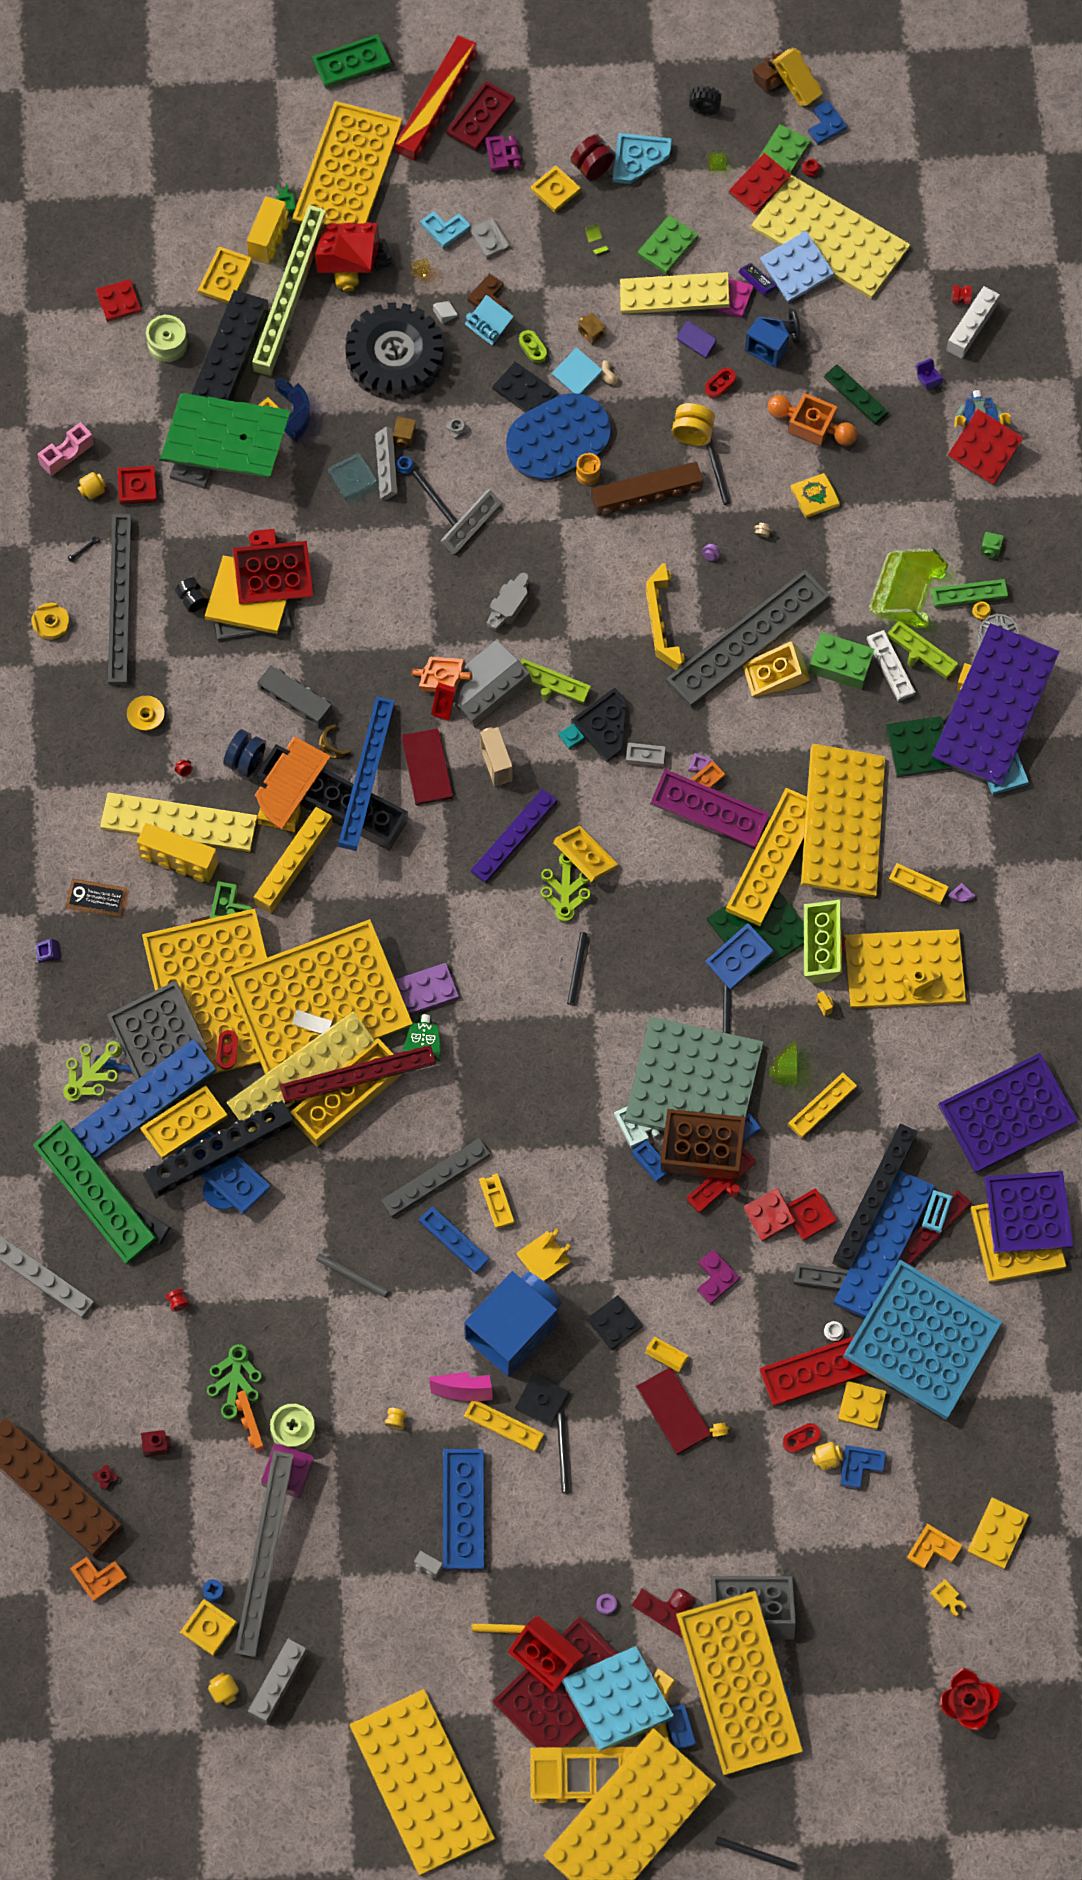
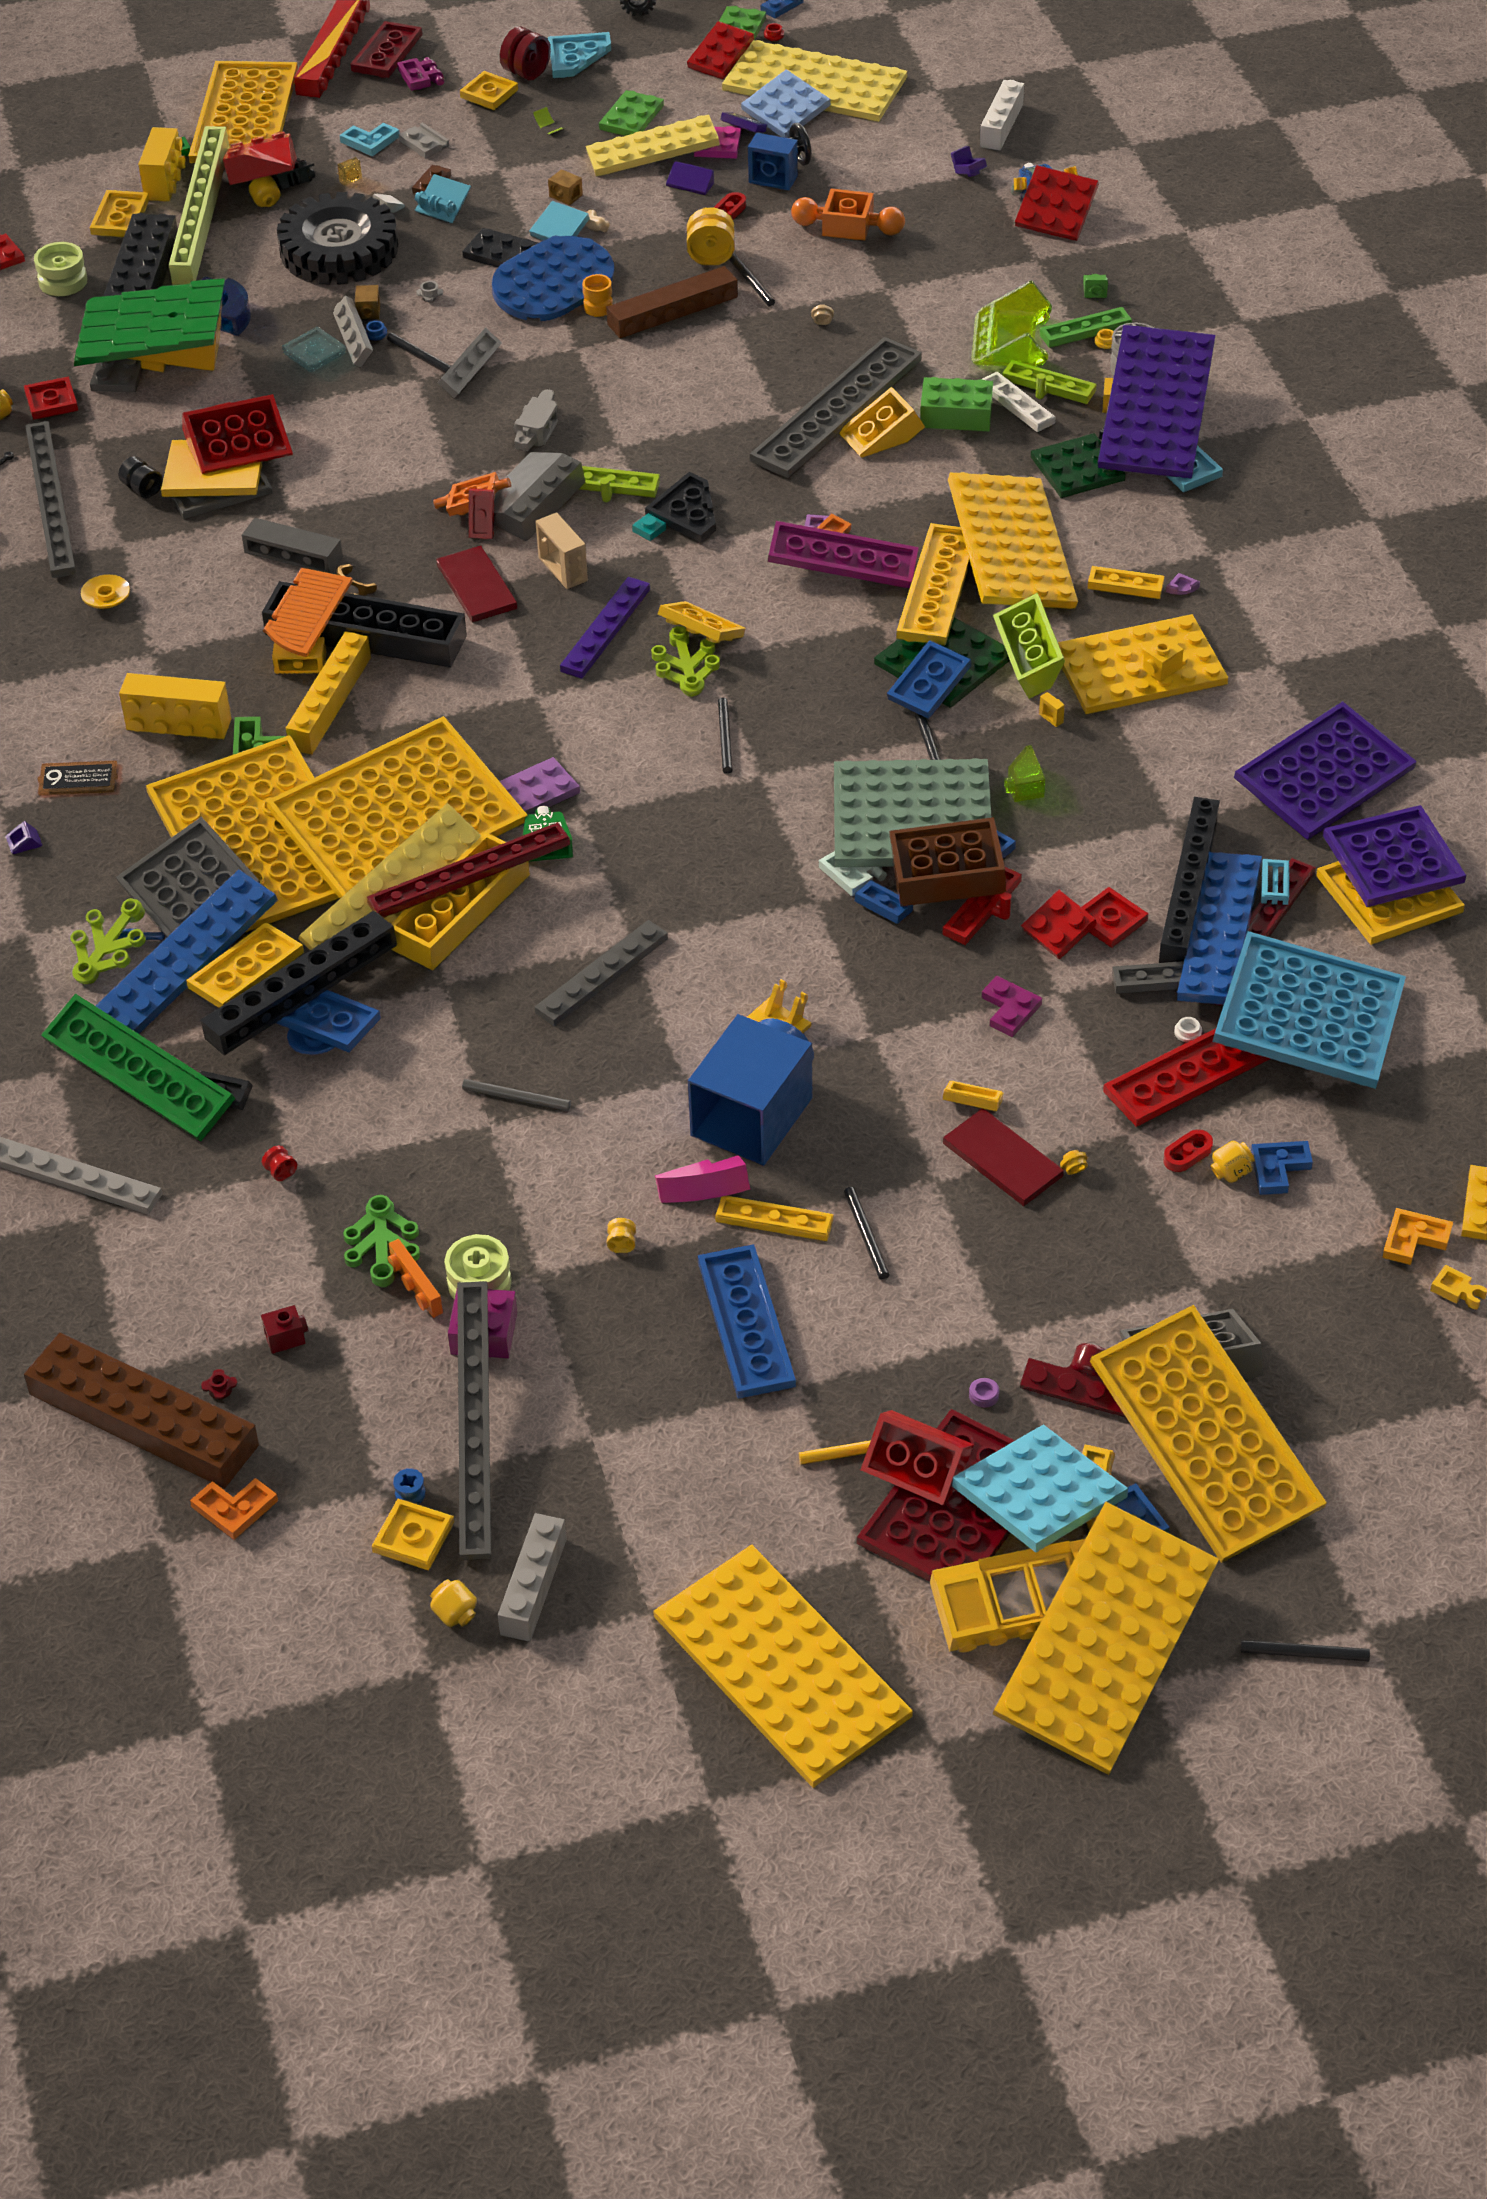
camera: 10 degrees left, 20 degrees down
(183, 767) = (170, 634): red plate -> none
(197, 823) = (101, 689): light yellow plate -> none
(227, 1050) = (286, 883): red plate -> none
(244, 753) = (241, 599): dark blue wheel -> none
(311, 1022) = (390, 833): white sticker -> none
(351, 61) = (226, 31): green plate -> none
(366, 774) = (401, 587): blue plate -> none
(428, 1565) = (715, 1391): light grey piece -> none
(453, 1240) = (645, 1030): blue plate -> none
(496, 1201) = (691, 980): yellow plate -> none
(533, 347) = (500, 213): lime plate -> none
(541, 1400) = (818, 1179): black plate -> none
(614, 1322) = (890, 1077): black plate -> none
(645, 754) = (746, 525): light grey plate -> none
(672, 655) = (745, 434): yellow slope -> none
(711, 552) = (767, 342): medium lavender plate -> none
(716, 161) = (666, 45): clear neon green plate -> none
(814, 495) = (873, 278): yellow slope -> none
(822, 1105) = (1085, 807): yellow plate -> none
(856, 394) = (891, 194): dark green plate -> none
(861, 1405) = (1255, 1102): yellow plate -> none
(961, 294) = (980, 97): red wheel -> none

